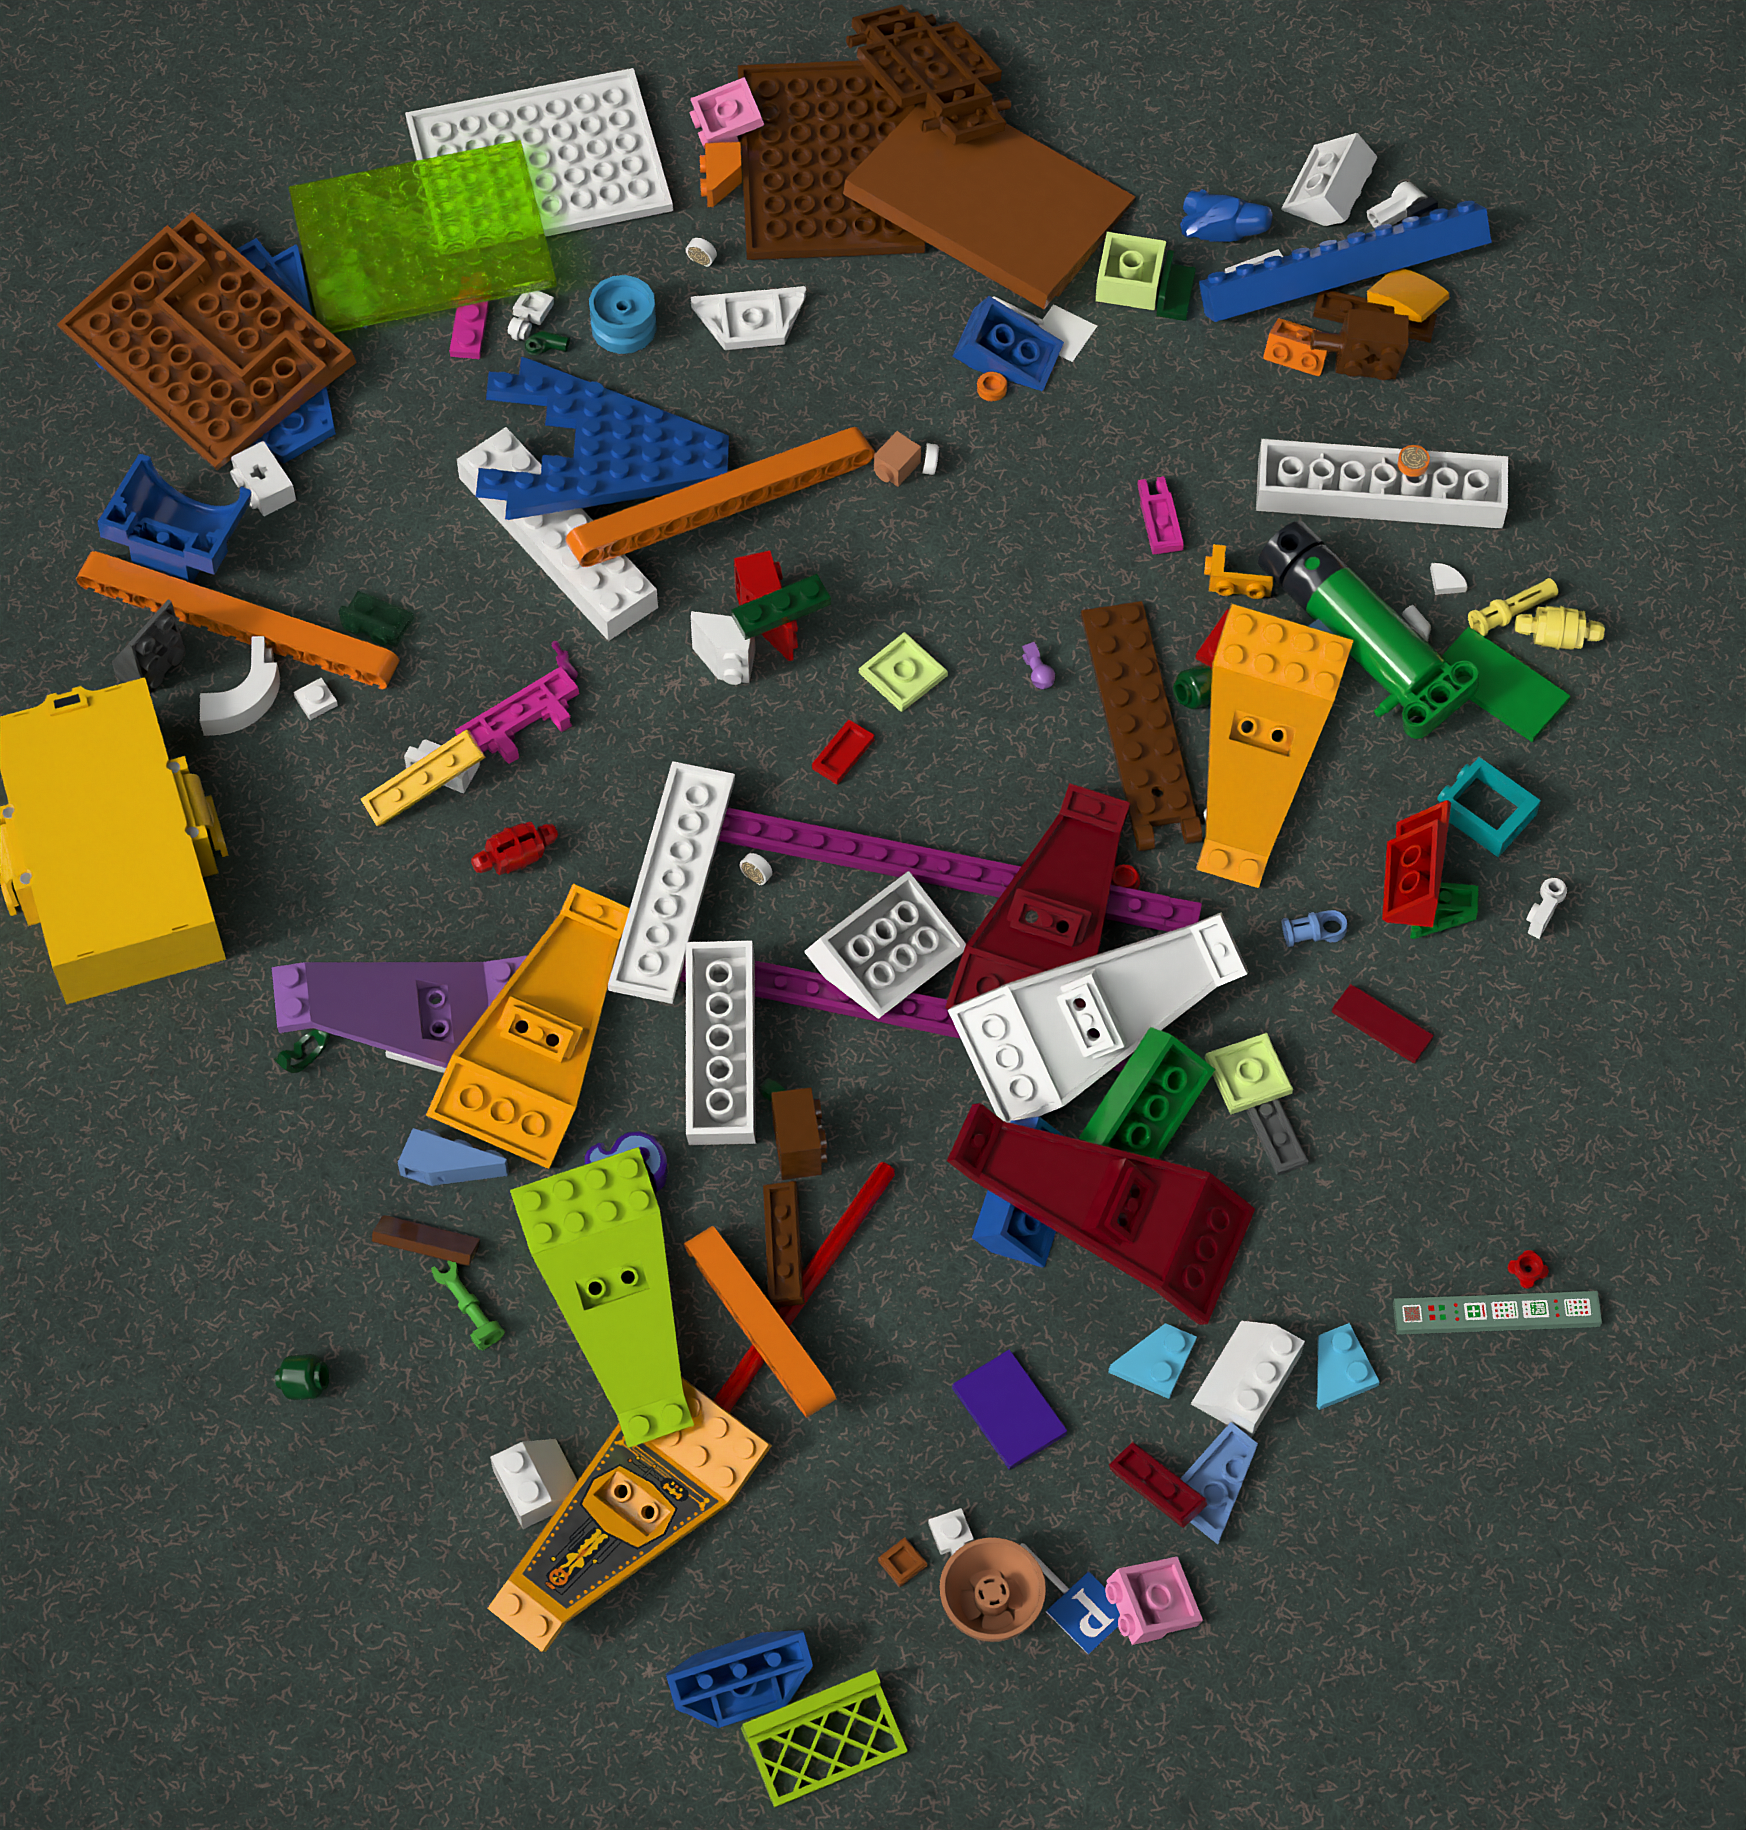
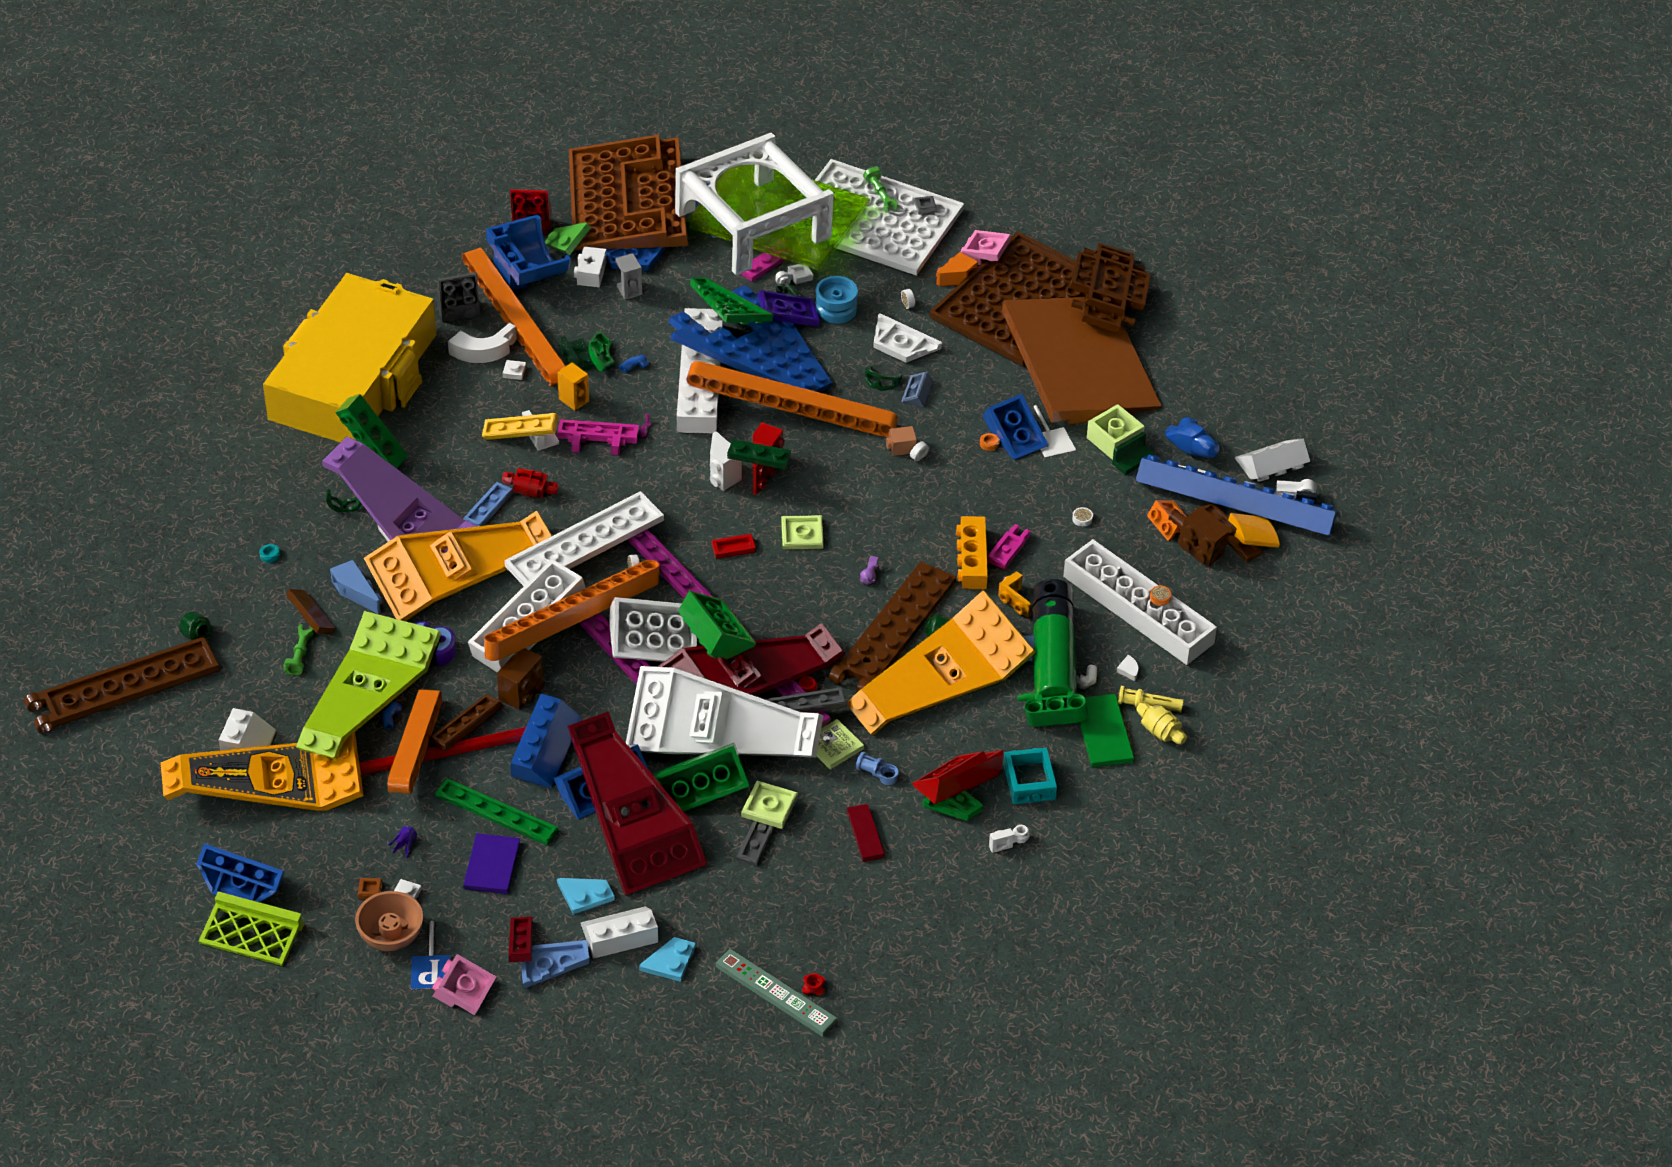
camera: 40 degrees right, 15 degrees down
(110, 454) = (530, 203): none -> red slope
(194, 458) = (567, 238): none -> bright green wing
(259, 930) = (370, 430): none -> green brick
(280, 1196) = (269, 553): none -> teal tile
(294, 1530) = (122, 683): none -> reddish brown hinge
(341, 458) = (630, 276): none -> light grey panel
(354, 190) = (766, 156): none -> white arch
(400, 594) = (599, 351): none -> green tile
(429, 671) = (573, 386): none -> light orange brick
(453, 581) = (632, 362): none -> blue arm
(486, 917) = (489, 504): none -> medium blue tile
(489, 104) = (873, 176): none -> bright green piece
(525, 417) = (728, 304): none -> green wing
(576, 367) = (789, 308): none -> dark purple tile
(593, 102) = (925, 205): none -> dark grey tile
(681, 1315) = (387, 715): none -> blue arm
(757, 390) = (895, 379): none -> dark green helmet
(773, 996) = (570, 610): none -> orange beam
(835, 373) = (917, 389): none -> sand blue slope
(876, 1458) = (405, 835): none -> dark purple piece
(911, 1197) = (544, 742): none -> blue slope
(941, 1335) = (497, 812): none -> green tile
(976, 886) = (715, 625): none -> green slope
(1106, 519) = (973, 552): none -> light orange brick
(1160, 903) = (813, 701): none -> dark grey tile
(1198, 413) = (1082, 517): none -> tile
(1245, 925) = (837, 744): none -> yellowish green tile

